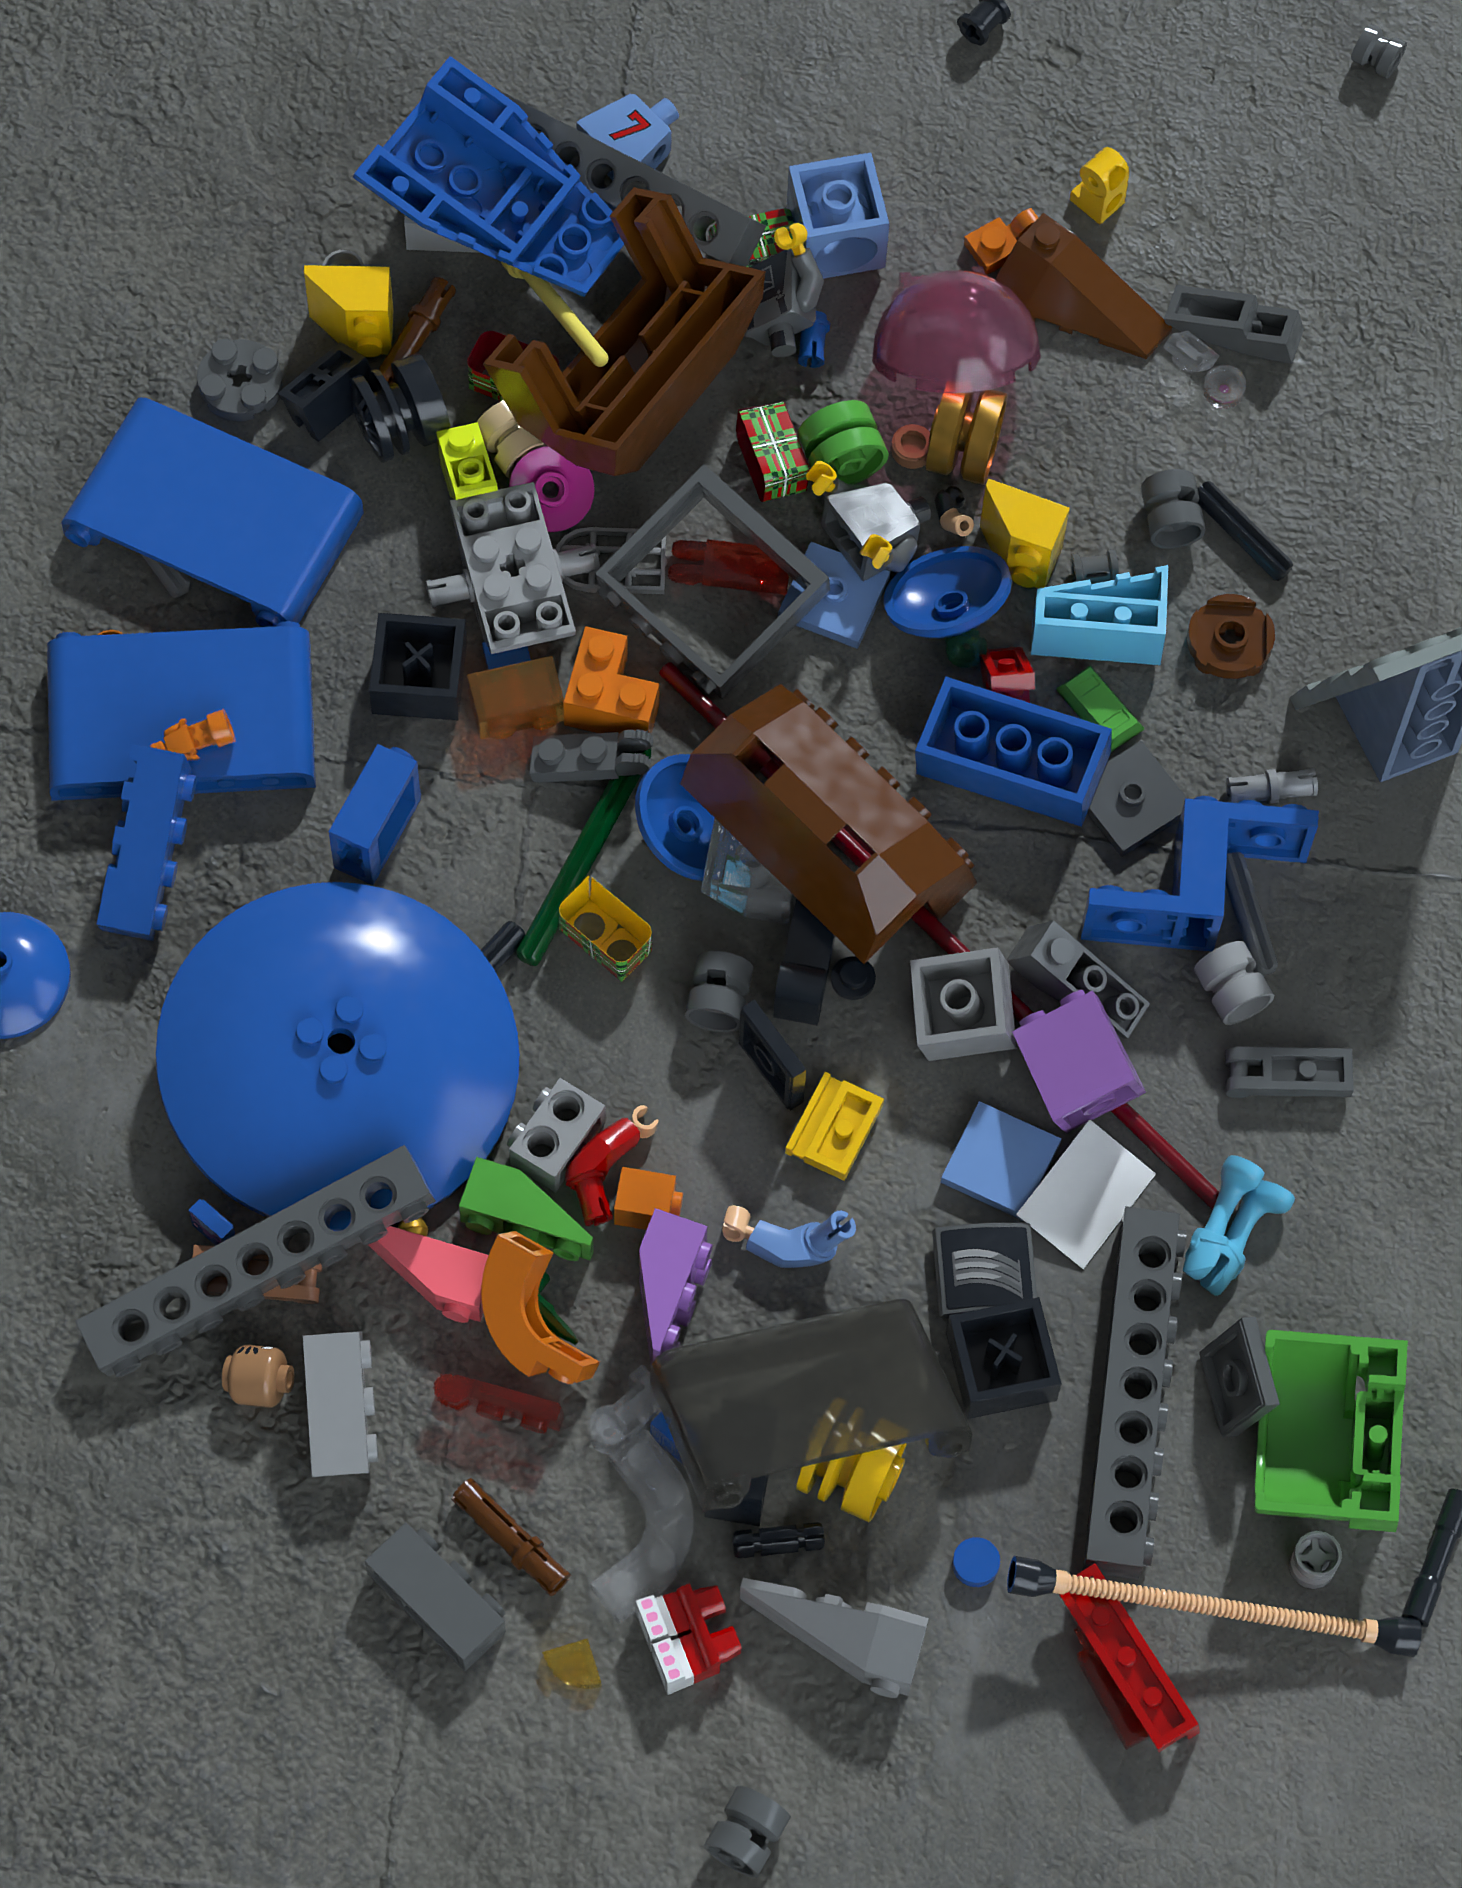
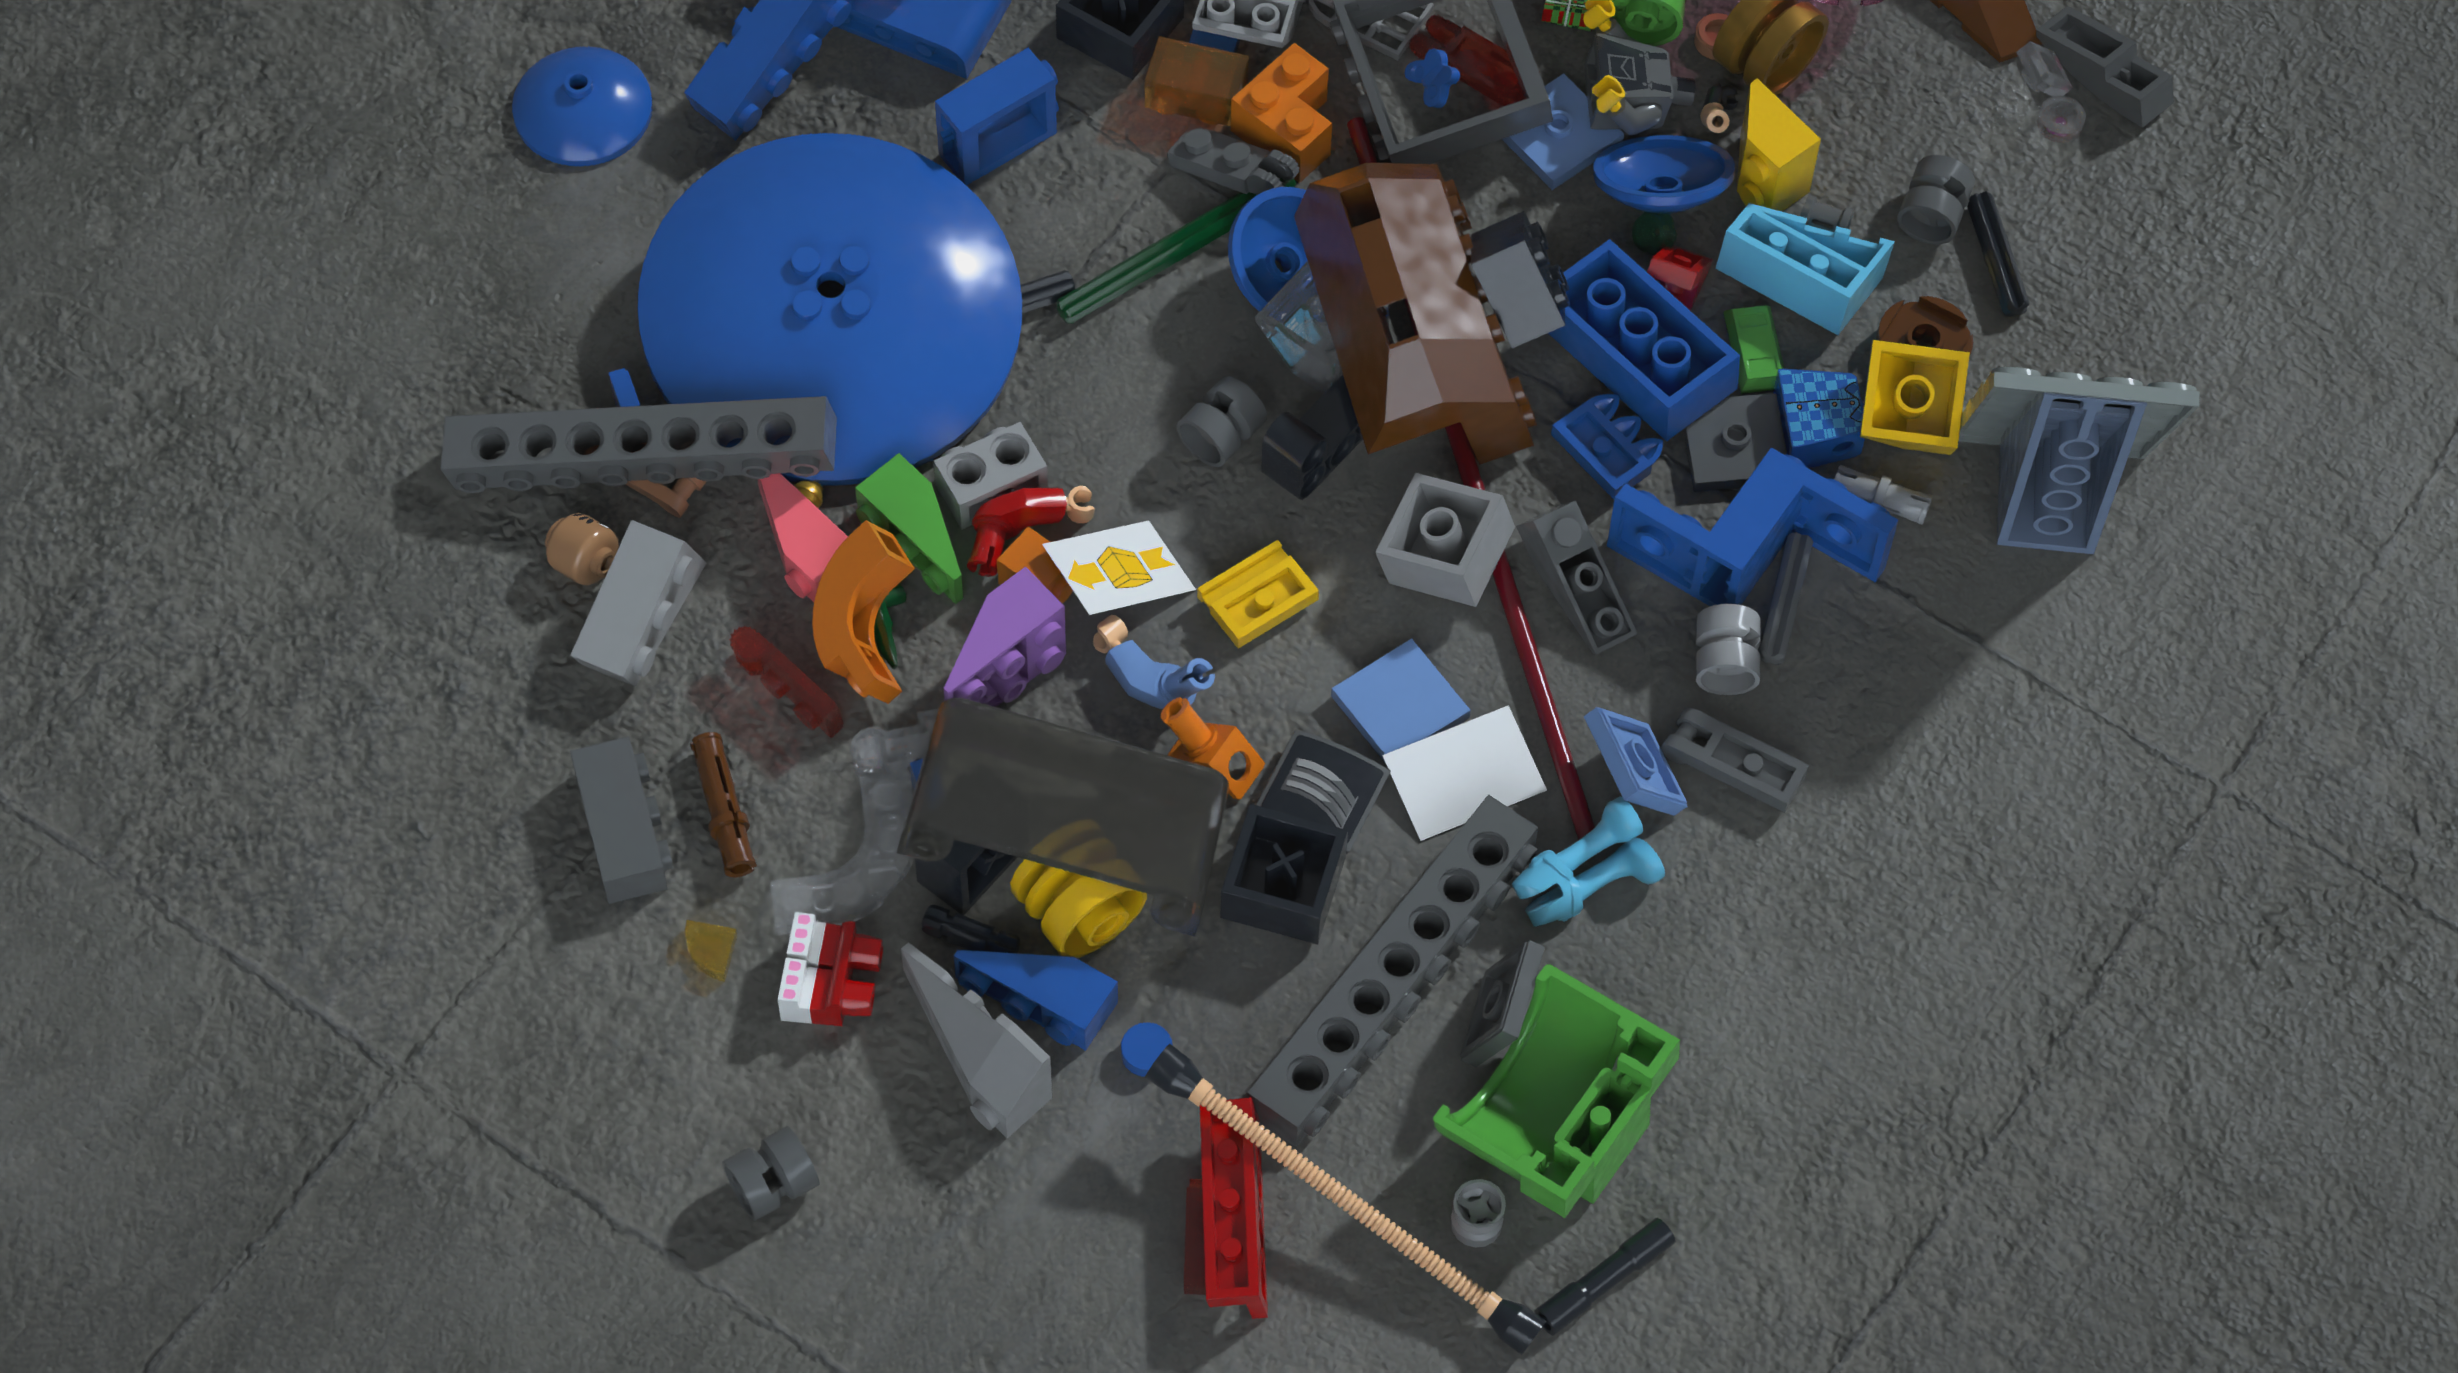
camera: 30 degrees right, 5 degrees down
(613, 913) = (1140, 284): yellow piece -> none
(712, 1162) = (1118, 567): none -> white sticker
(724, 602) = (1434, 75): none -> blue piece
(772, 1055) = (1231, 496): black tile -> none
(853, 978) = (1360, 473): black plate -> none
(876, 1279) = (1210, 745): none -> orange bracket
(881, 1554) = (1049, 990): none -> blue slope
(912, 753) = (1519, 278): none -> brick
(1034, 854) = (1606, 446): none -> blue plate
(1077, 1060) = (1523, 644): medium lavender slope -> none
(1192, 741) = (1820, 415): none -> torso
(1221, 1117) = (1636, 761): none -> medium blue plate
(1263, 692) = (1914, 397): none -> yellow slope

